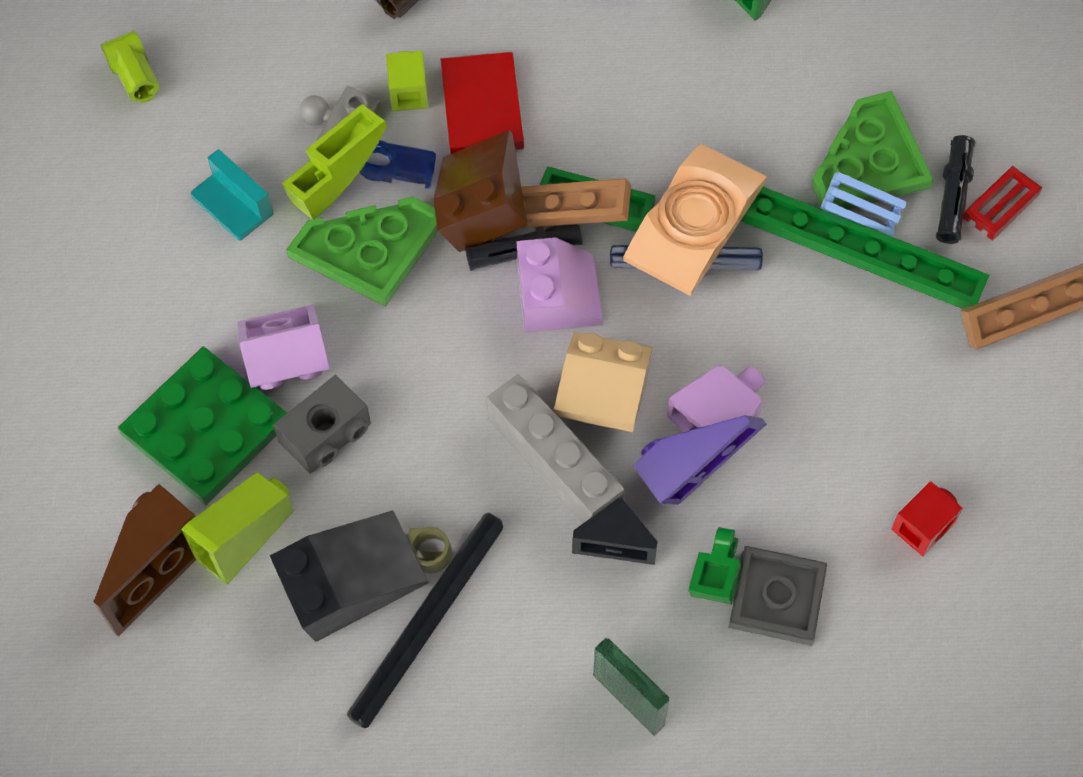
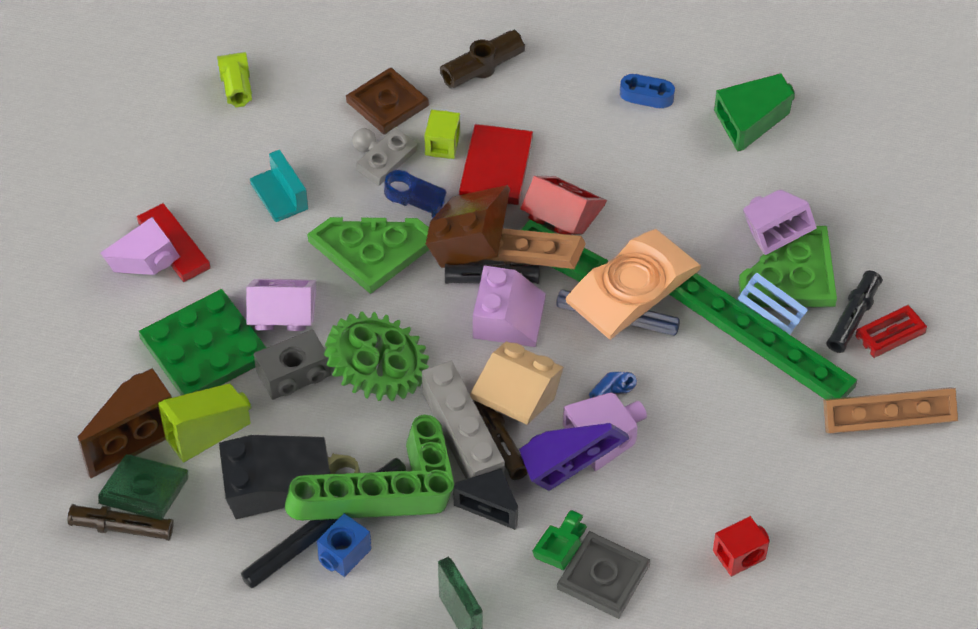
camera: 15 degrees right, 10 degrees down
(89, 322) = (141, 251): none -> lavender slope
(122, 299) = (191, 260): none -> red tile
(124, 692) = (119, 522): none -> dark brown pin
(190, 634) = (143, 486): none -> clear green tile
(324, 52) = (387, 100): none -> reddish brown tile
(334, 161) = (365, 178): lime slope -> none
(422, 389) = (355, 357): none -> bright green gear
(466, 628) = (343, 533): none -> blue brick
(488, 558) = (424, 487): none -> bright green beam
(577, 138) = (561, 205): none -> slope
(632, 483) = (513, 462): none -> dark brown pin
(711, 349) = (614, 383): none -> blue arm
(836, 97) = (778, 219): none -> lavender torso

